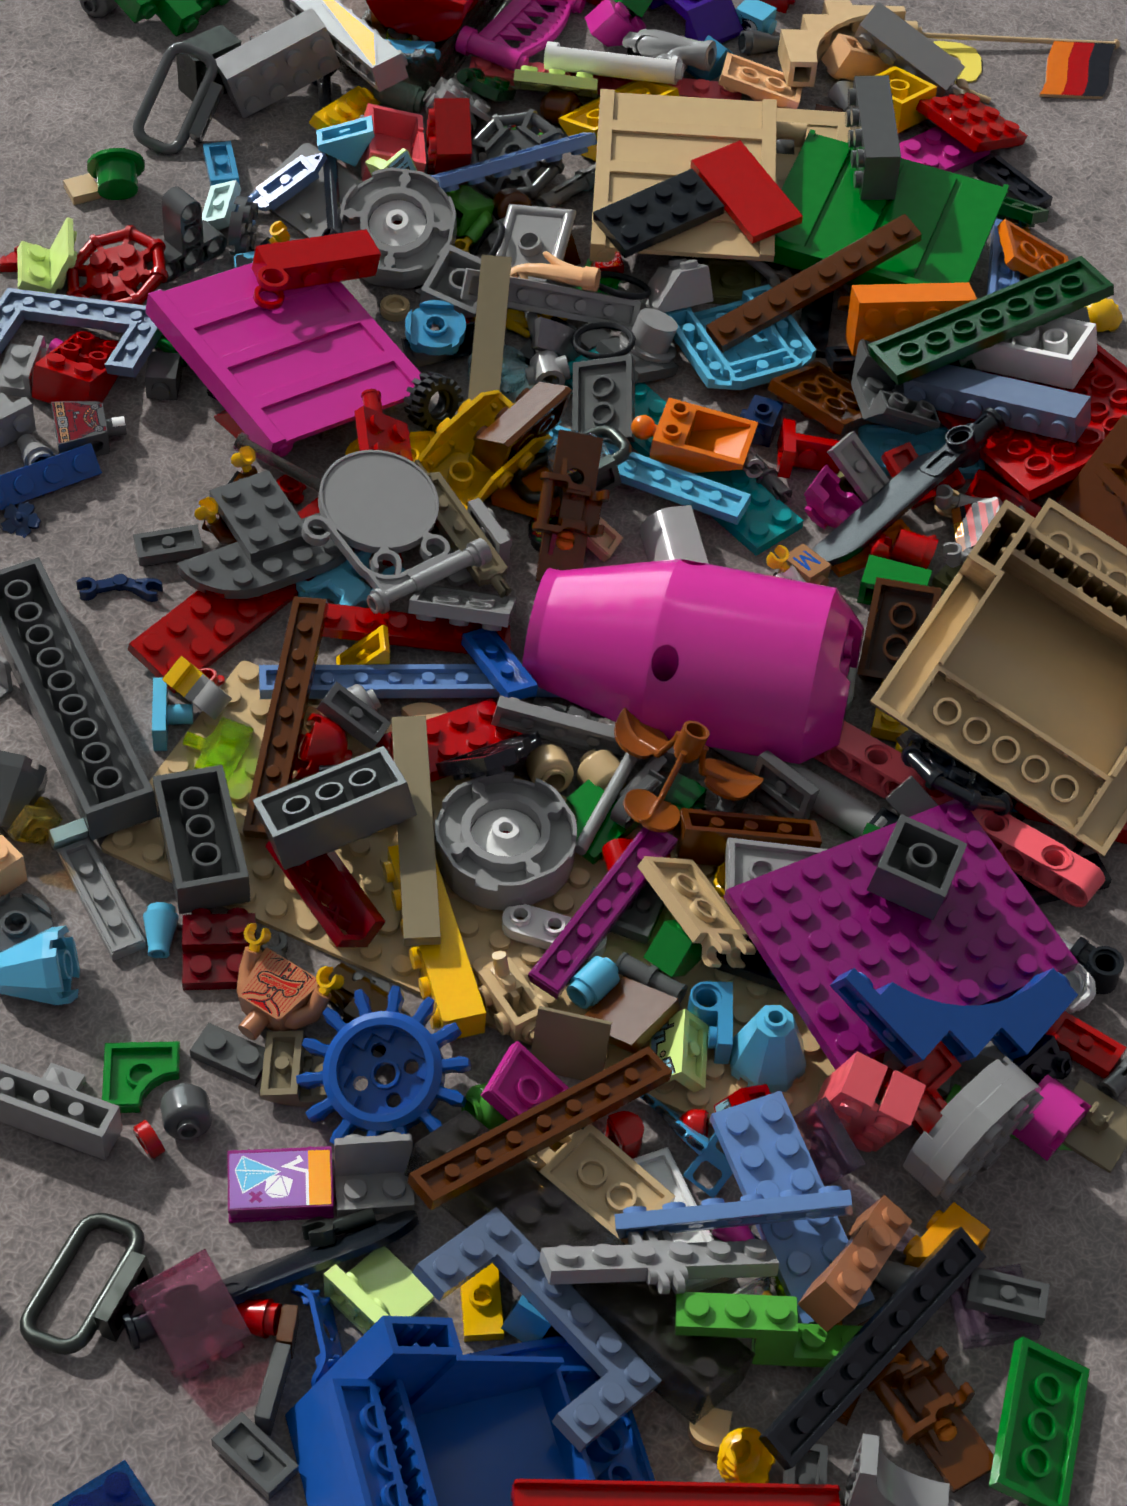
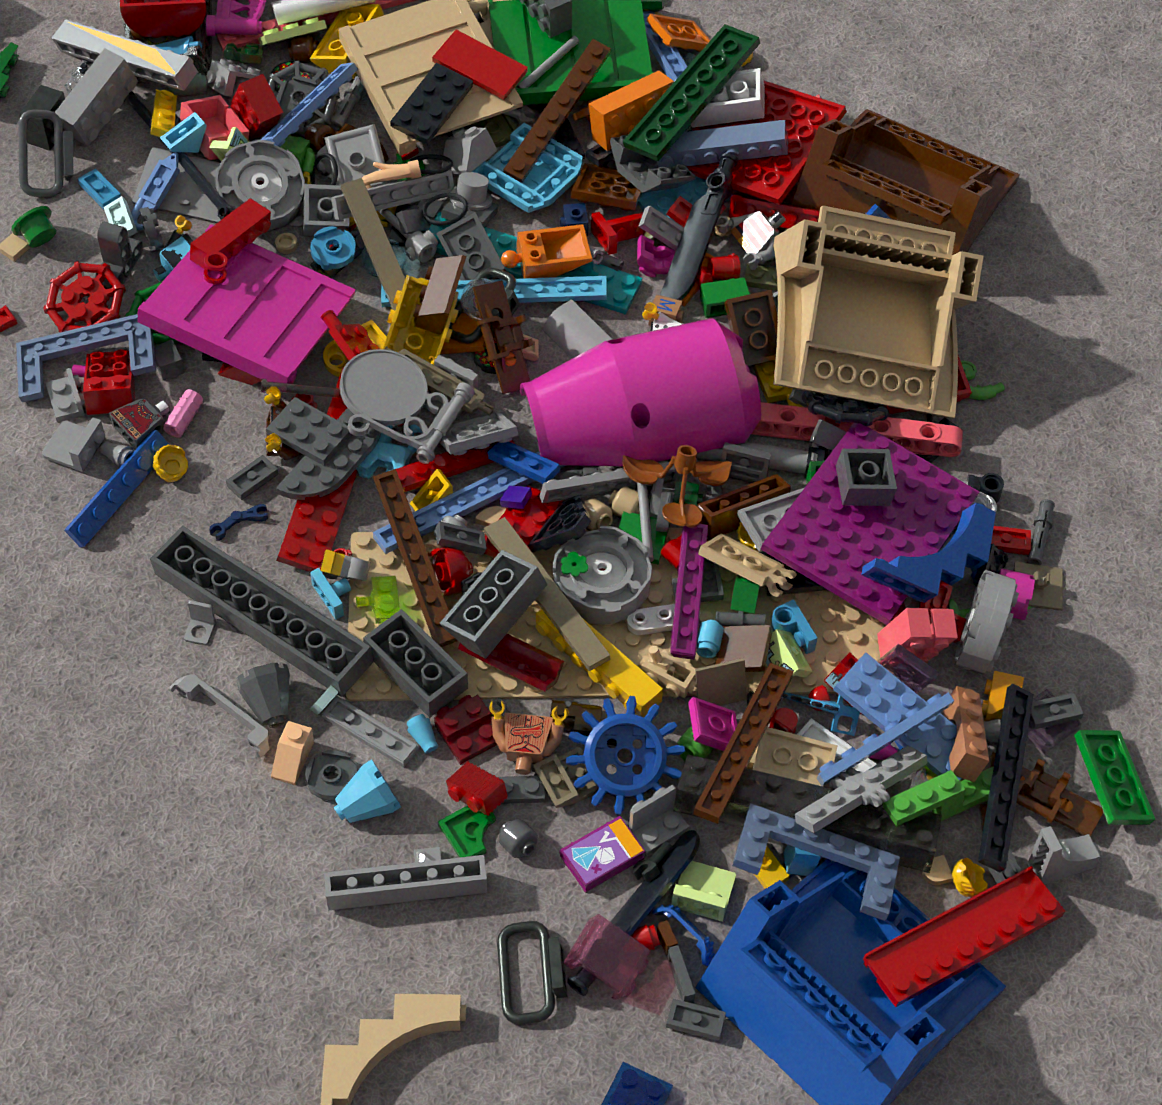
camera: 25 degrees left, 5 degrees up
(20, 519) = (139, 503): dark blue plant -> none
(35, 822) = (299, 701): clear yellow bracket -> none
(46, 268) = (35, 315): yellowish green bracket -> none
(83, 487) = (170, 463): none -> yellow hair
(139, 441) = (183, 413): none -> bright pink axle
(148, 1139) = (506, 866): red tile -> none
(173, 1025) = (476, 788): none -> red brick
(421, 395) = (363, 300): black tyre -> none
(462, 702) = (516, 497): none -> dark purple tile
(469, 807) = (574, 564): none -> green plant
(769, 1050) = (837, 631): medium azure cone -> none
(840, 226) = (549, 63): none -> light grey bar

